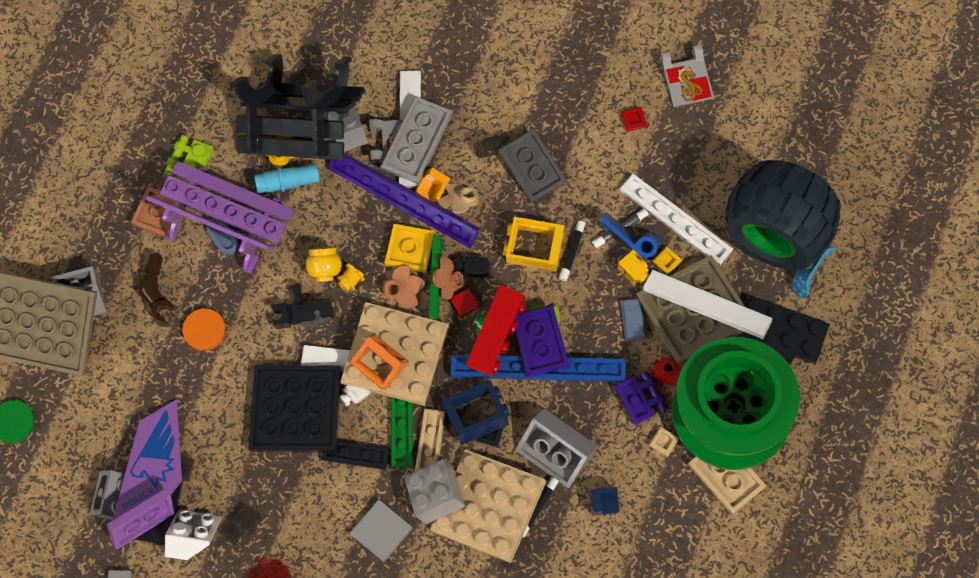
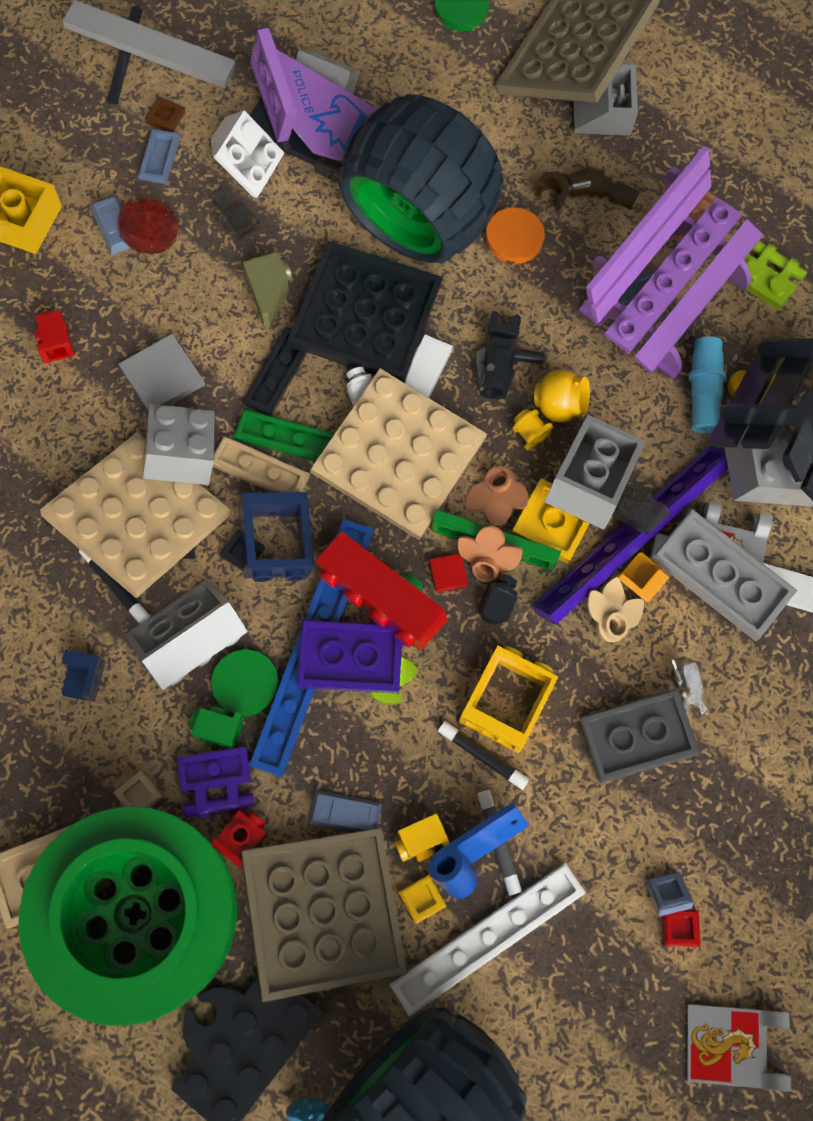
camera: 95 degrees right, 0 degrees up
(199, 386) = (421, 178): none -> black wheel
(295, 479) = (268, 284): none -> olive slope
(374, 227) = (595, 472): none -> light grey brick
(387, 353) = (393, 430): orange tile -> none
(389, 201) = (640, 511): none -> clear smoke tile
(575, 402) = (245, 682): none -> green tile
(609, 407) = (216, 726): none -> green brick
(618, 129) = (669, 894): none -> sand blue tile
(707, 304) = (317, 936): white tile -> none

